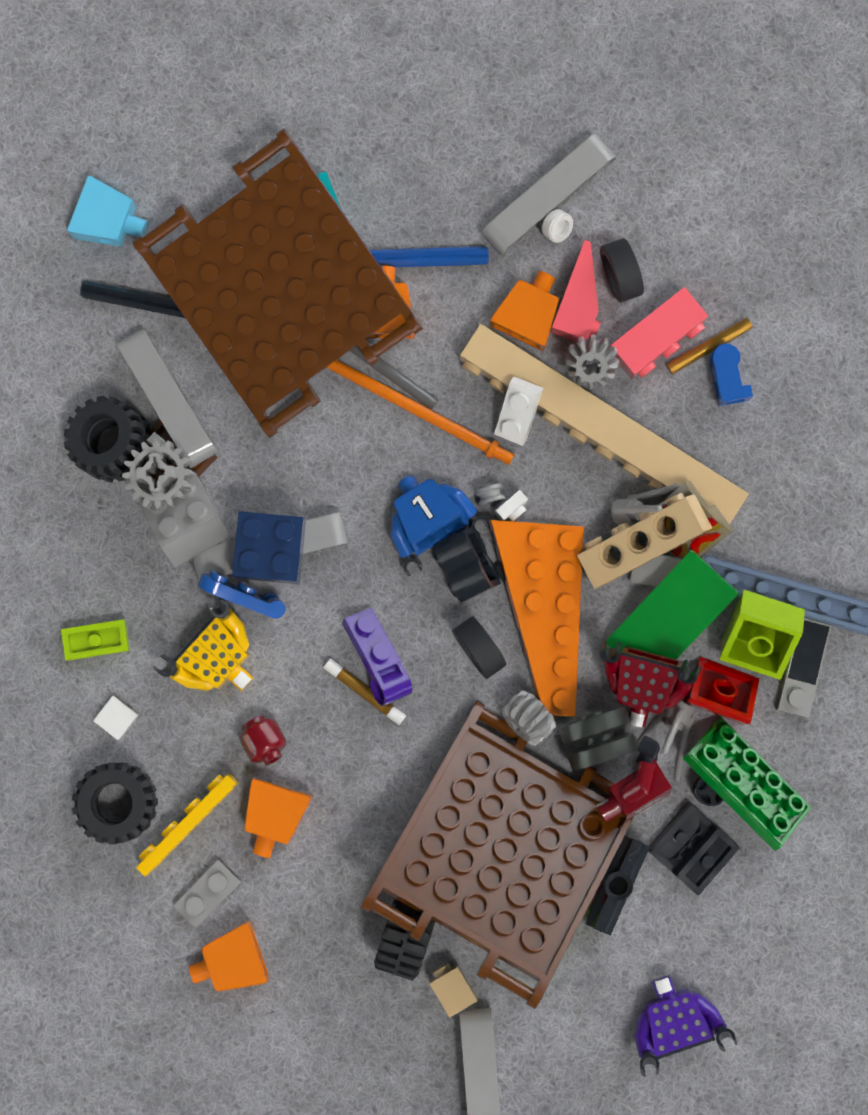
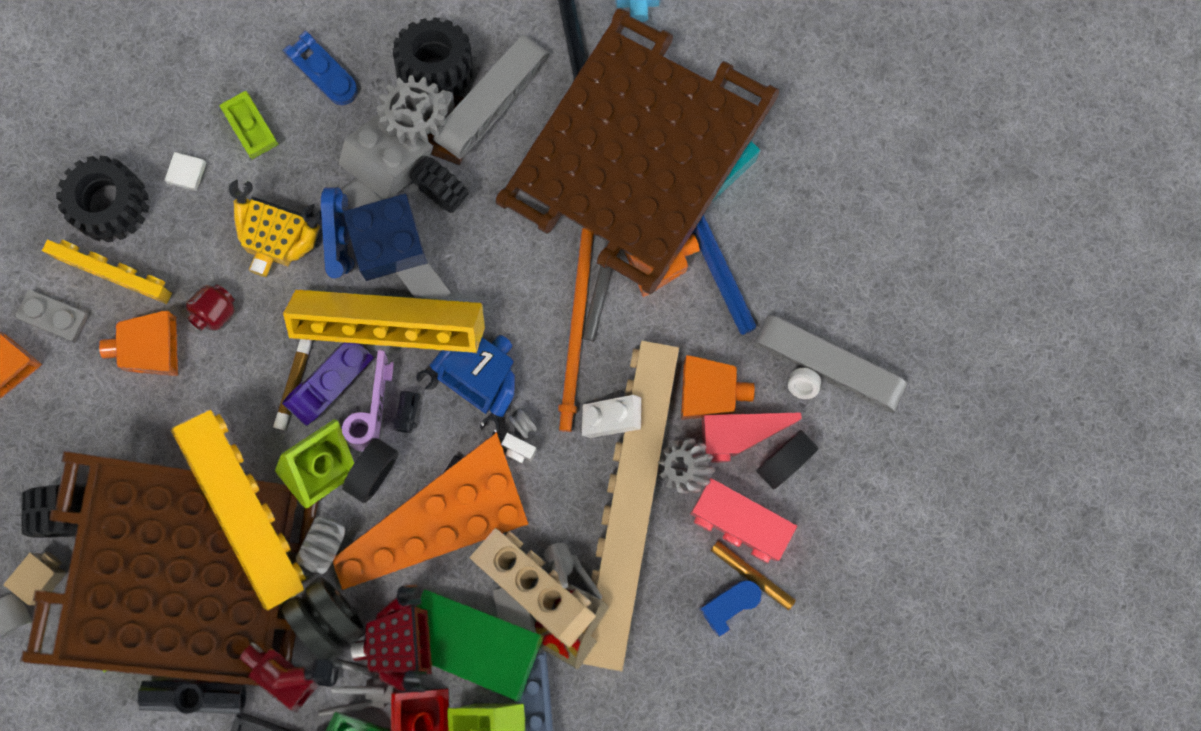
camera: 60 degrees right, 5 degrees down
(68, 550) = (322, 70): none -> blue plate
(234, 481) = (439, 184): none -> black tyre
(345, 580) = (385, 320): none -> yellow brick
(435, 597) = (406, 412): none -> black pin
(437, 640) = (361, 427): none -> lavender door
(455, 694) = (316, 464): none -> lime slope
(466, 564) = (446, 428): black brick -> none
(470, 774) = (238, 509): none -> yellow brick

